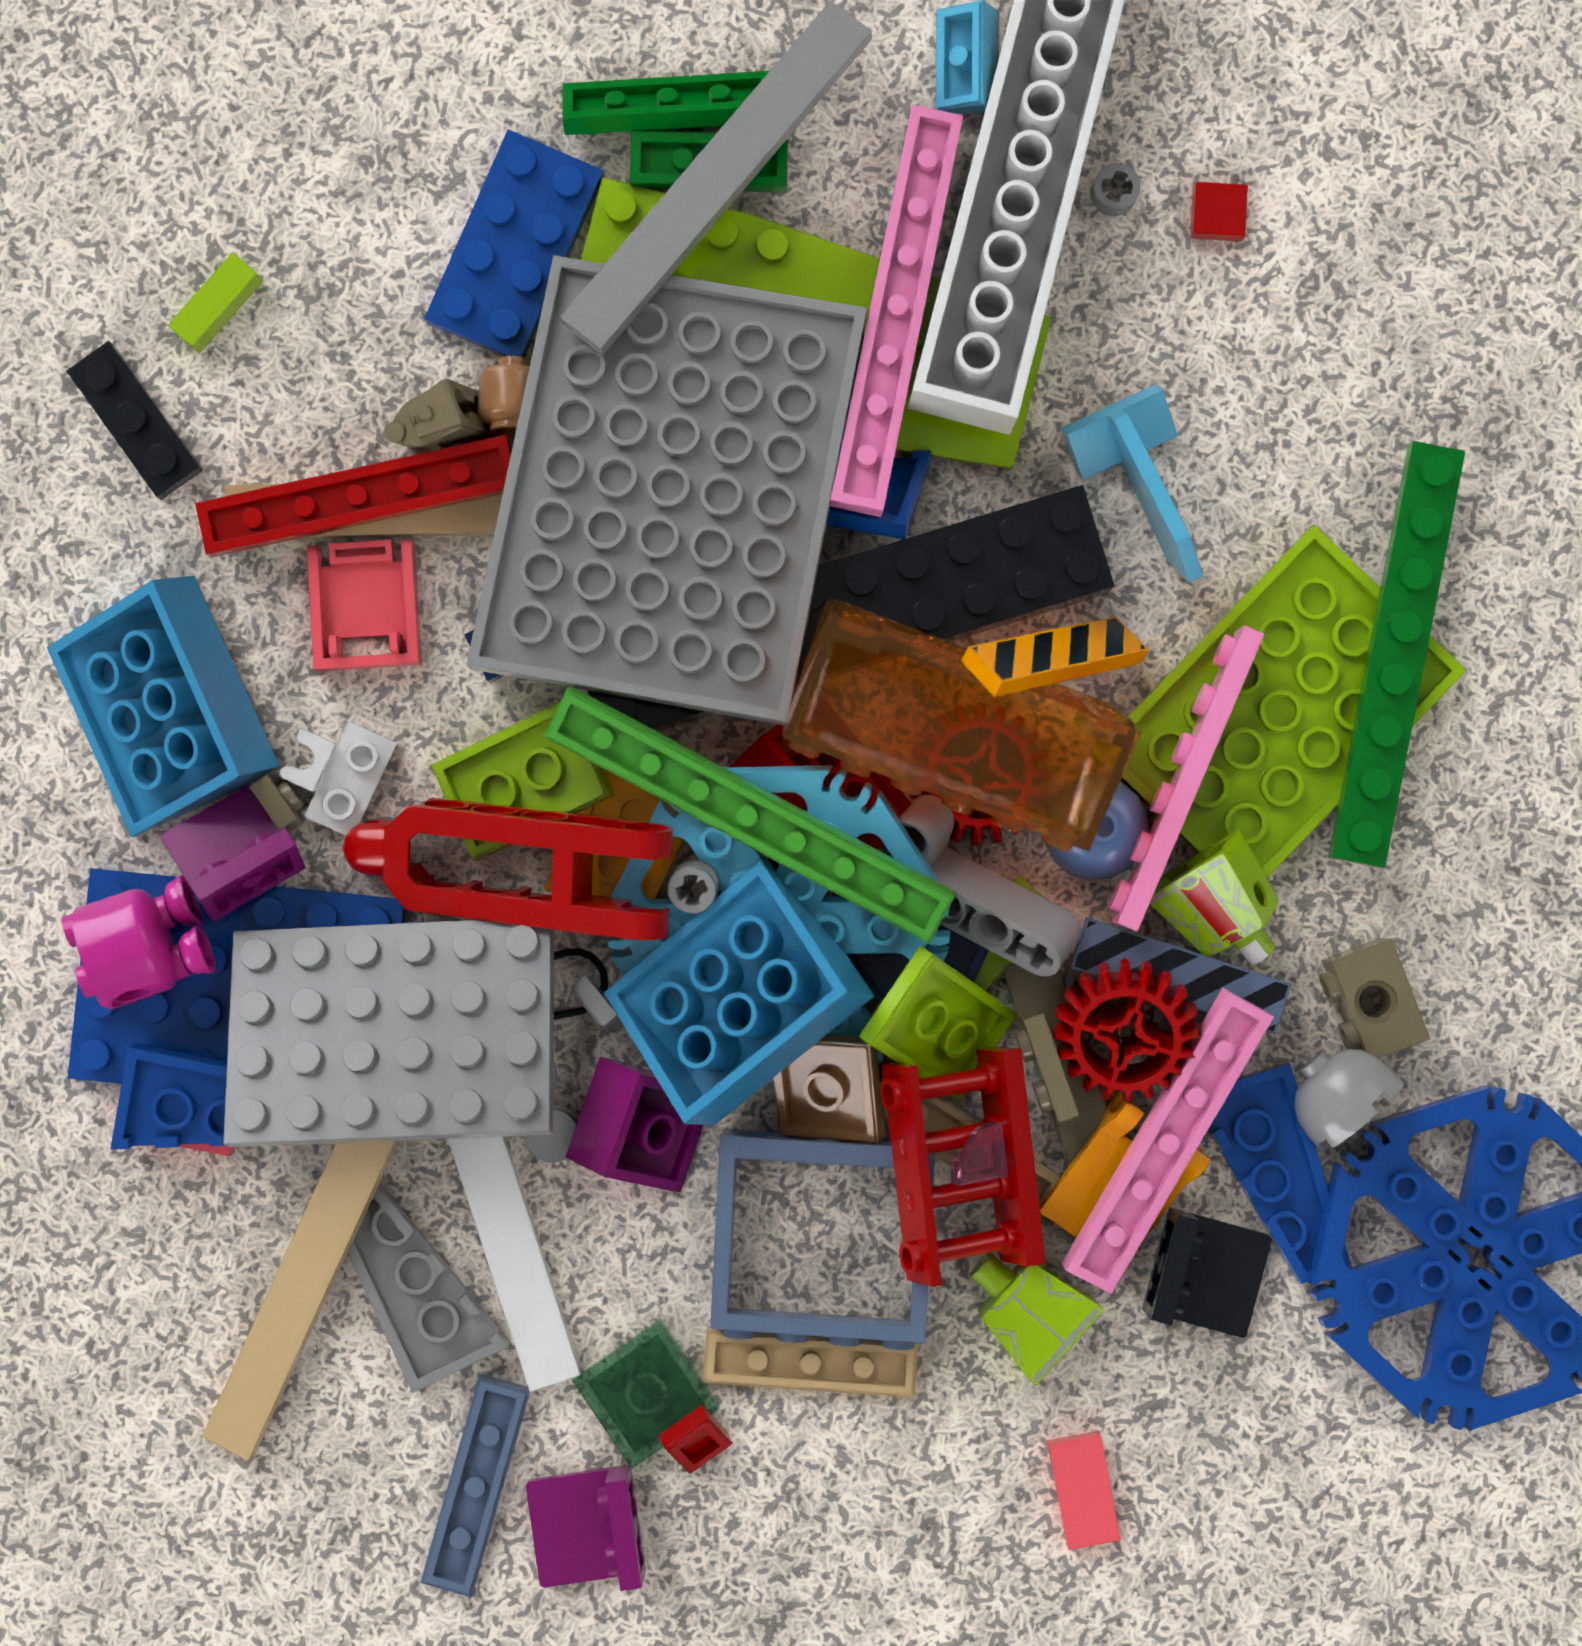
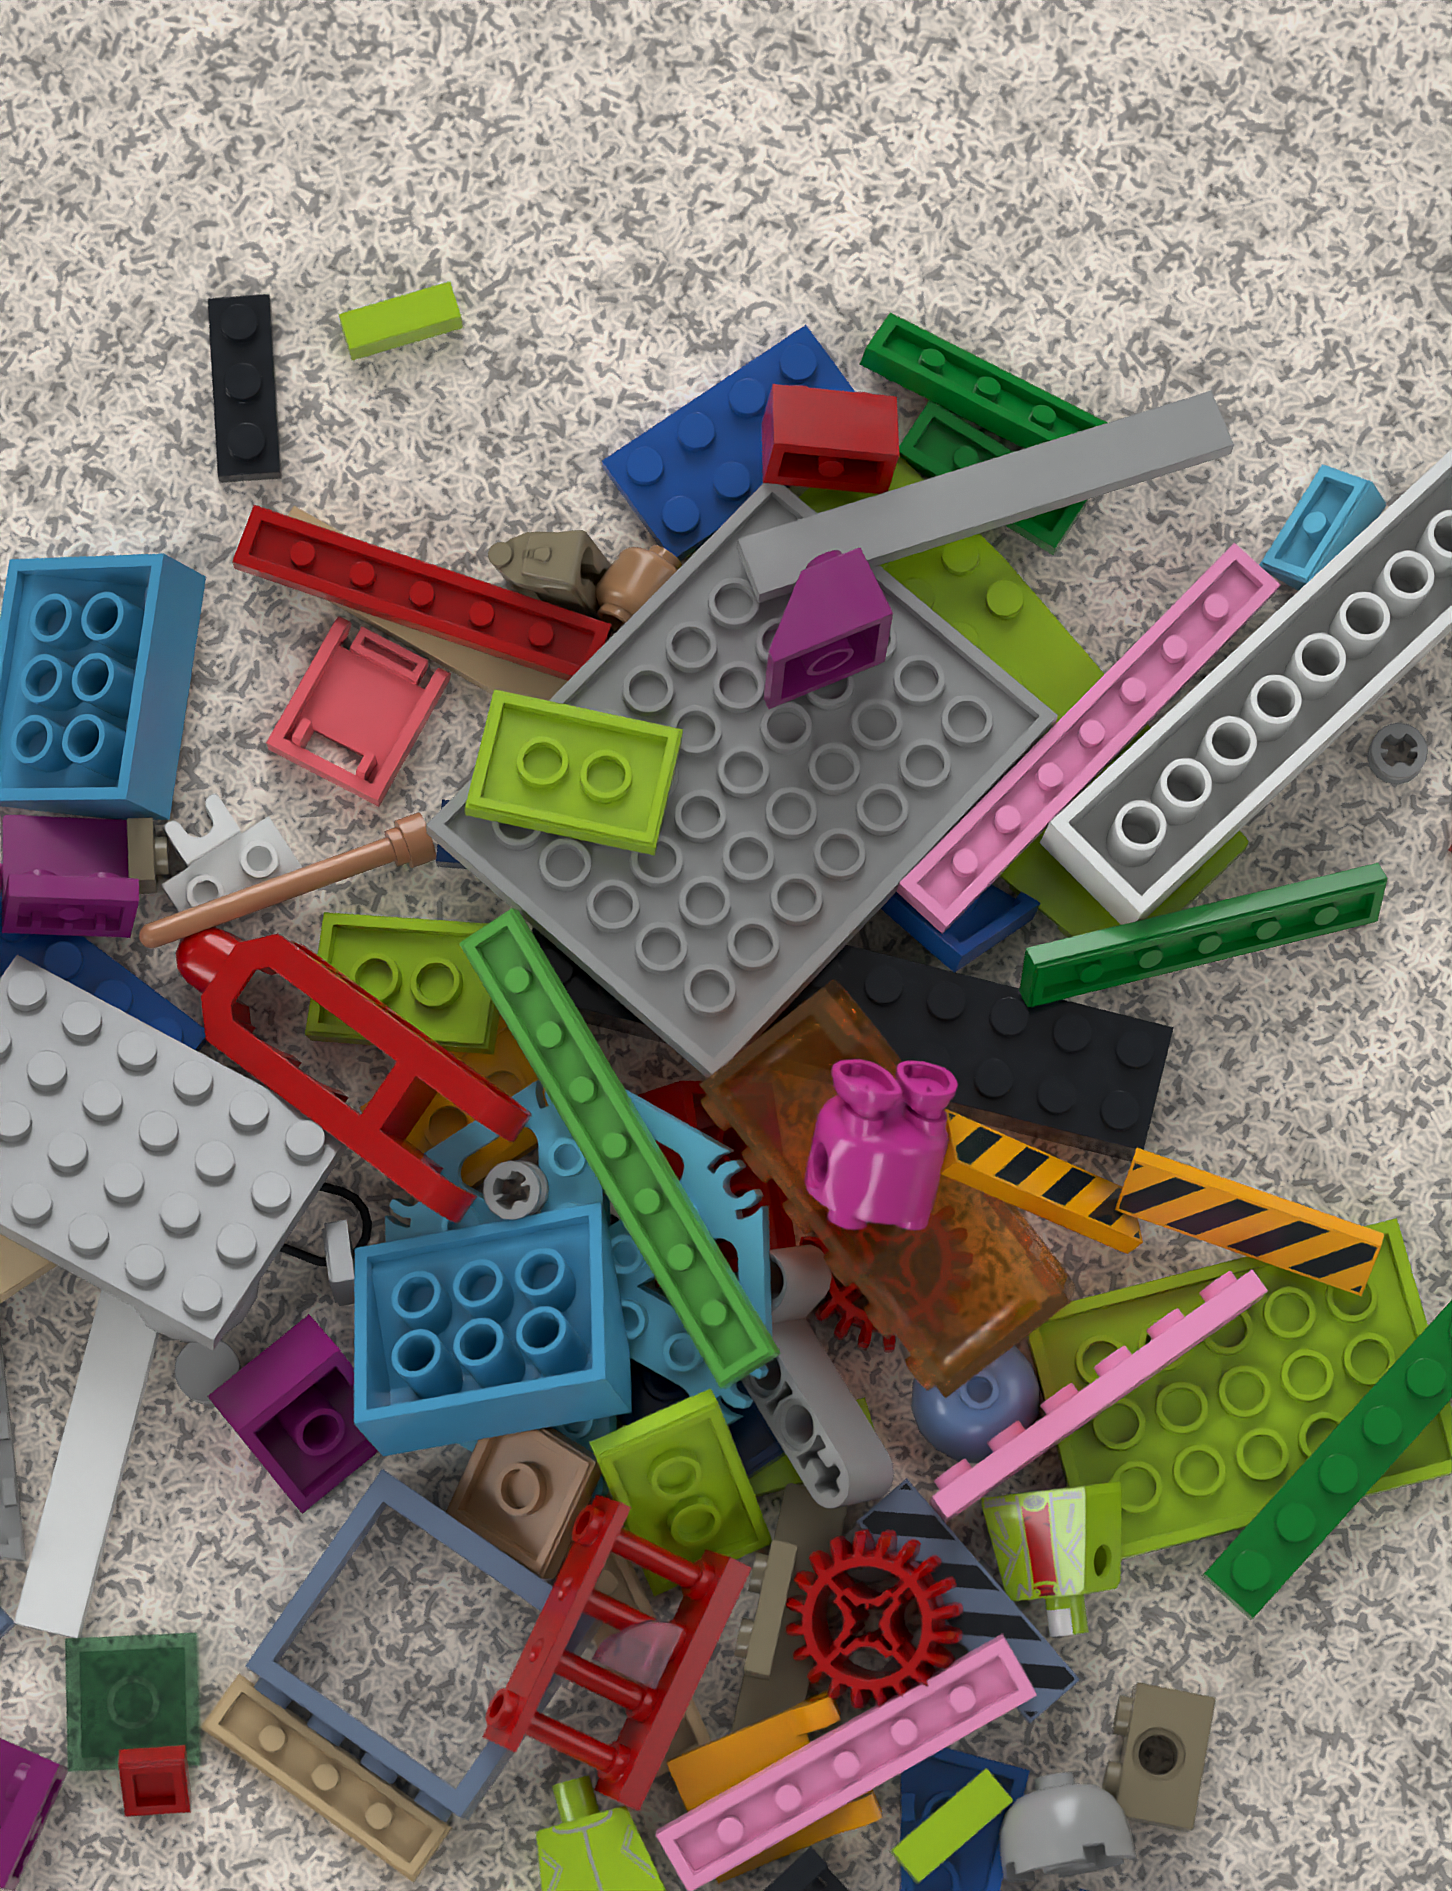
camera: 25 degrees right, 10 degrees down
(455, 684) = (401, 845): none -> nougat piece
(548, 561) = (574, 772): none -> lime tile
(579, 202) = (830, 439): none -> red brick
(670, 341) = (829, 628): none -> magenta slope
(939, 701) = (881, 1144): none -> dark pink piece
(1062, 406) = (1202, 934): none -> green tile
(1123, 436) = (1252, 1007): medium azure piece -> none
(1217, 590) = (1249, 1221): none -> light orange tile
(1262, 1138) = (951, 1825): none -> lime piece

